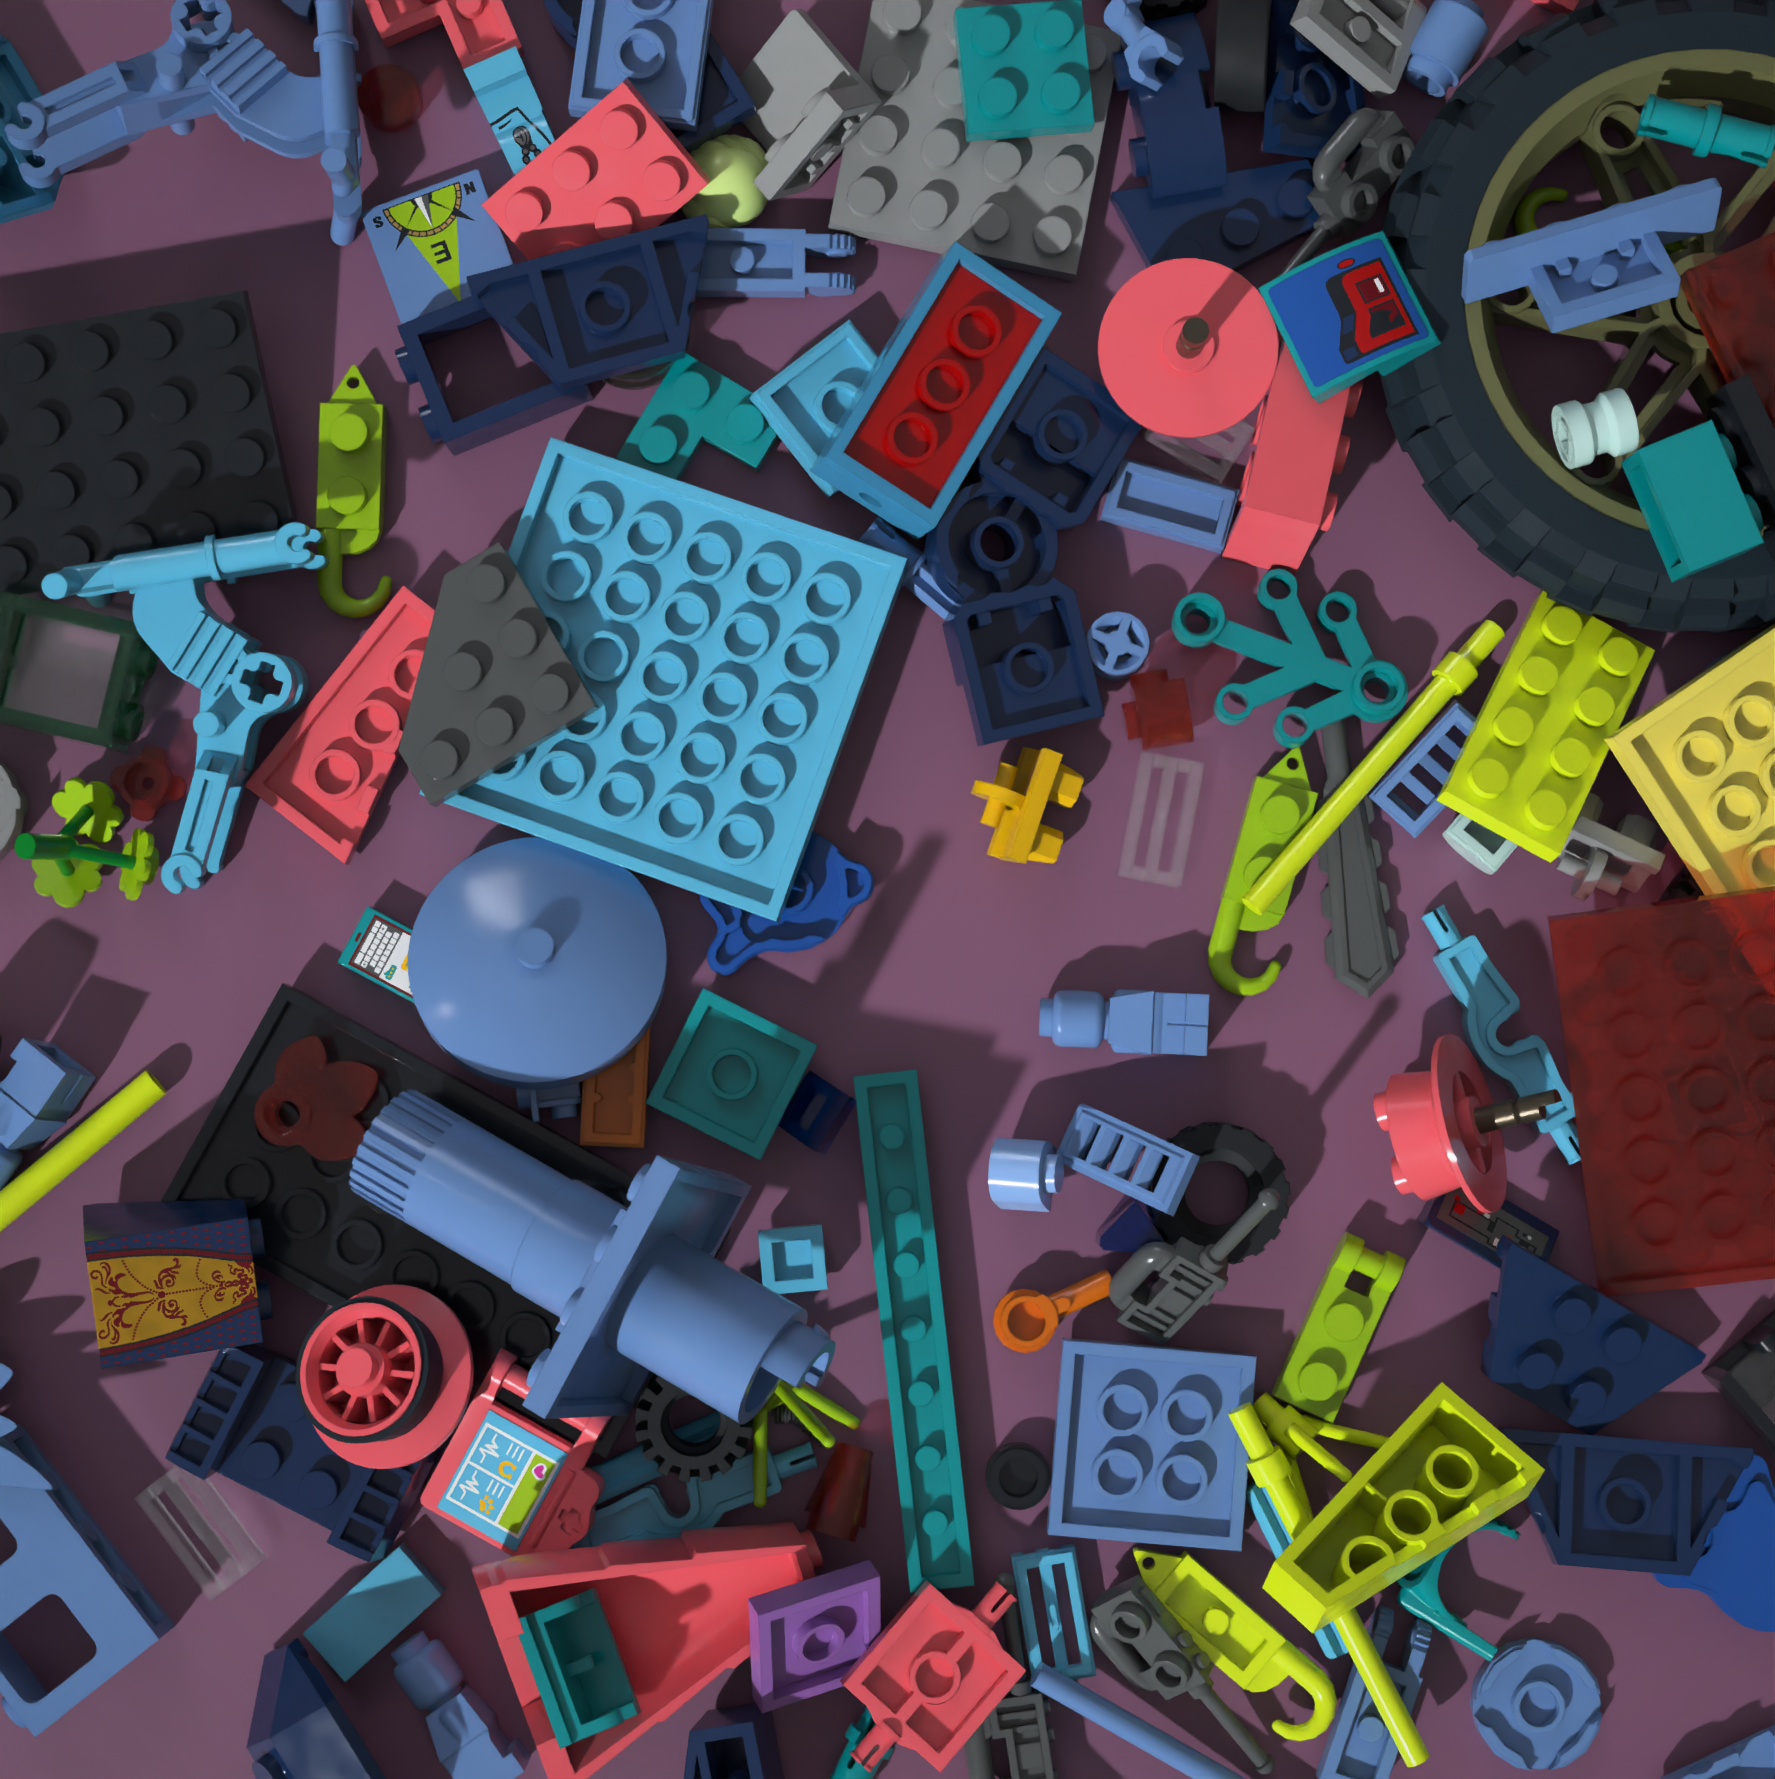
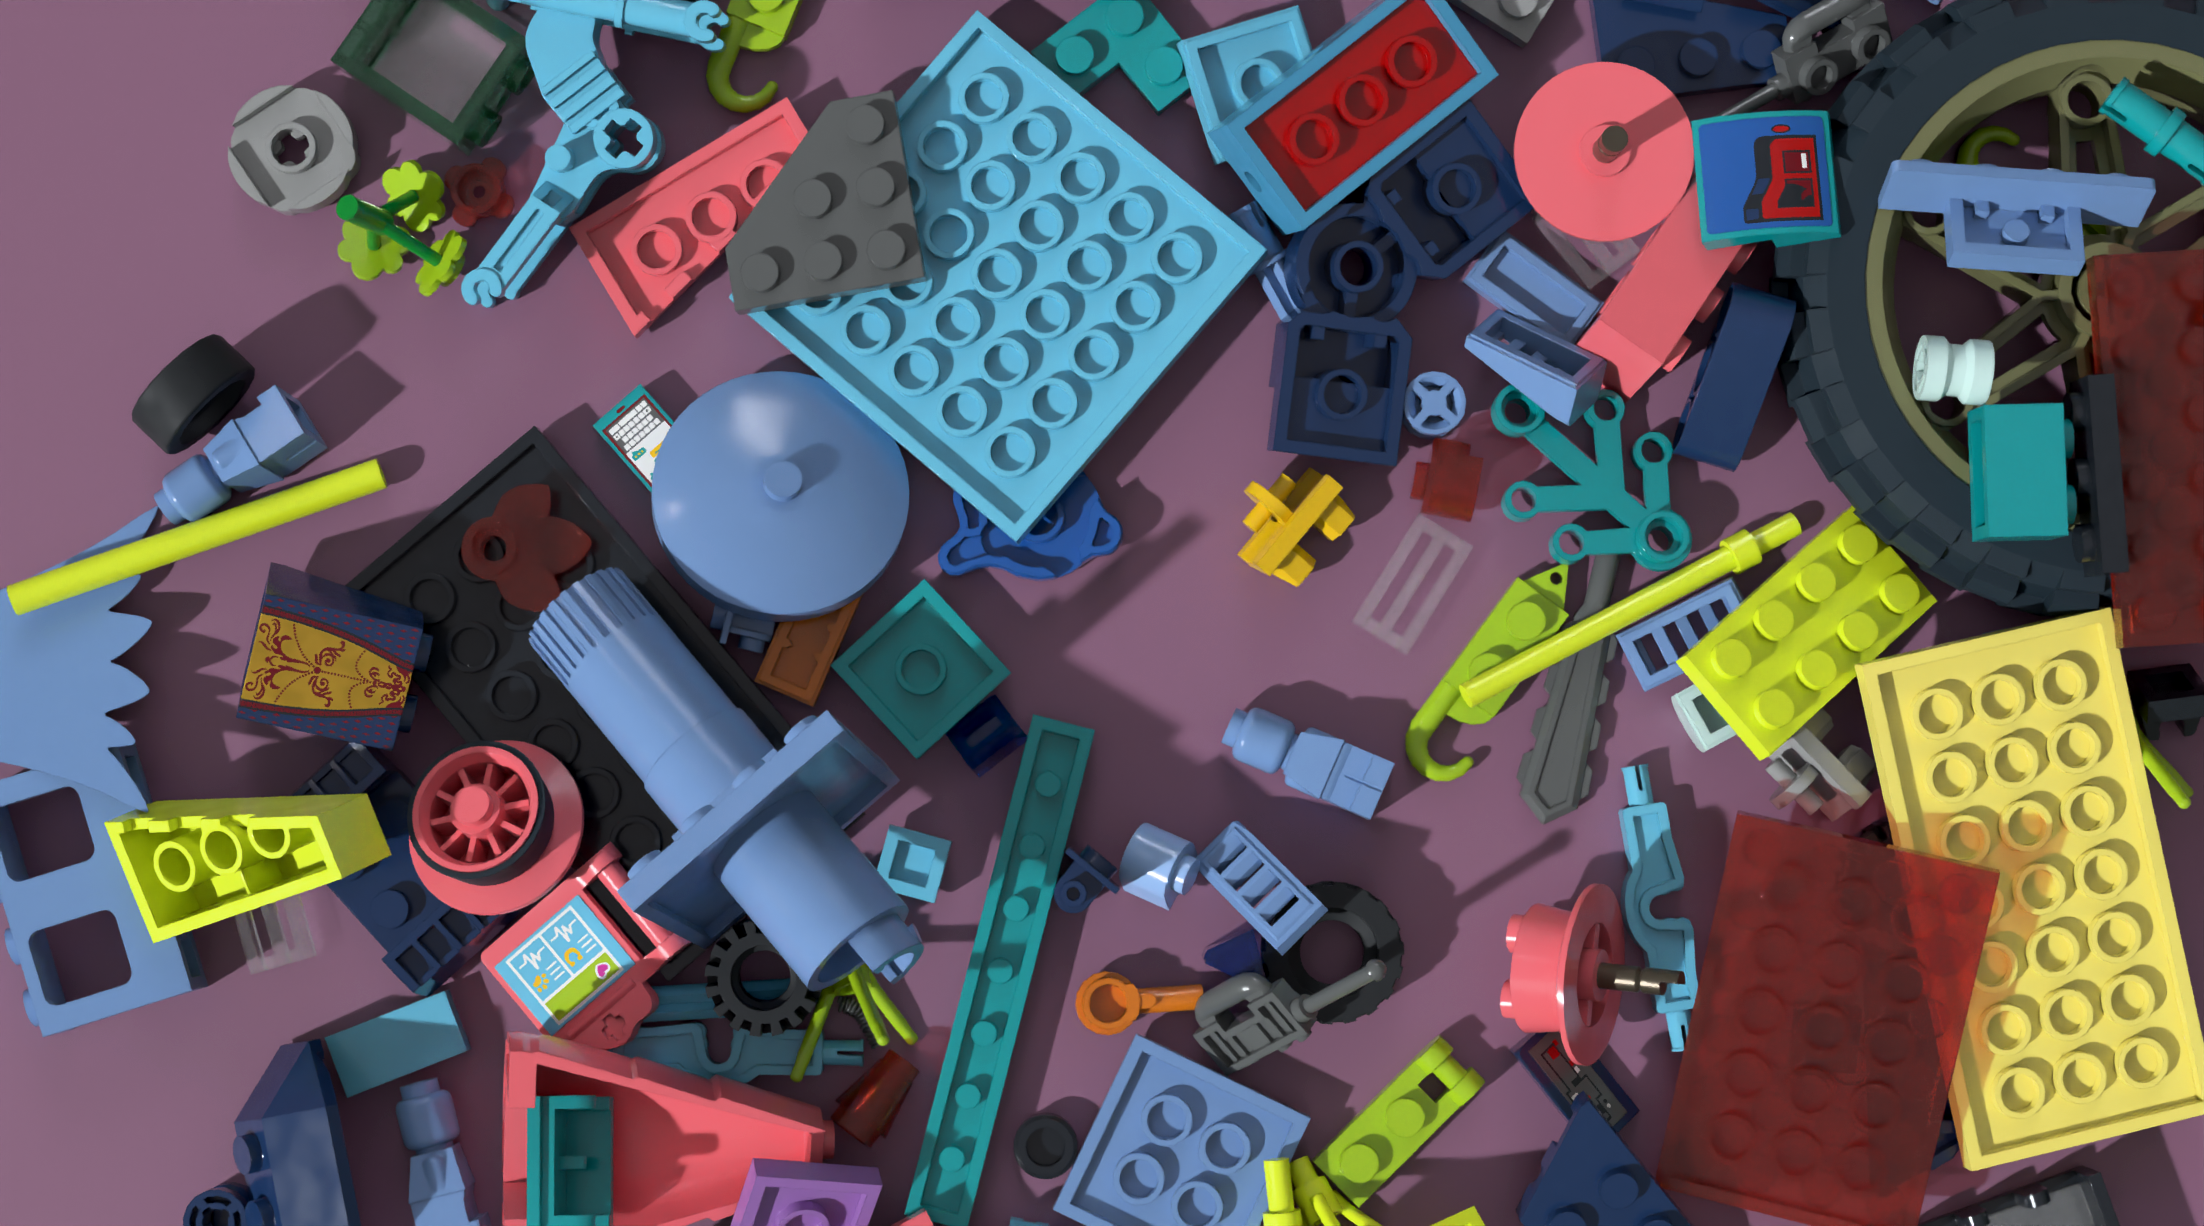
camera: 15 degrees right, 0 degrees up
(147, 1500) = (235, 854): none -> neon yellow wedge
(960, 1215) = (1084, 880): none -> dark blue hinge
(1202, 570) = (1539, 364): none -> medium blue slope
(1388, 512) = (1734, 376): none -> dark blue beam

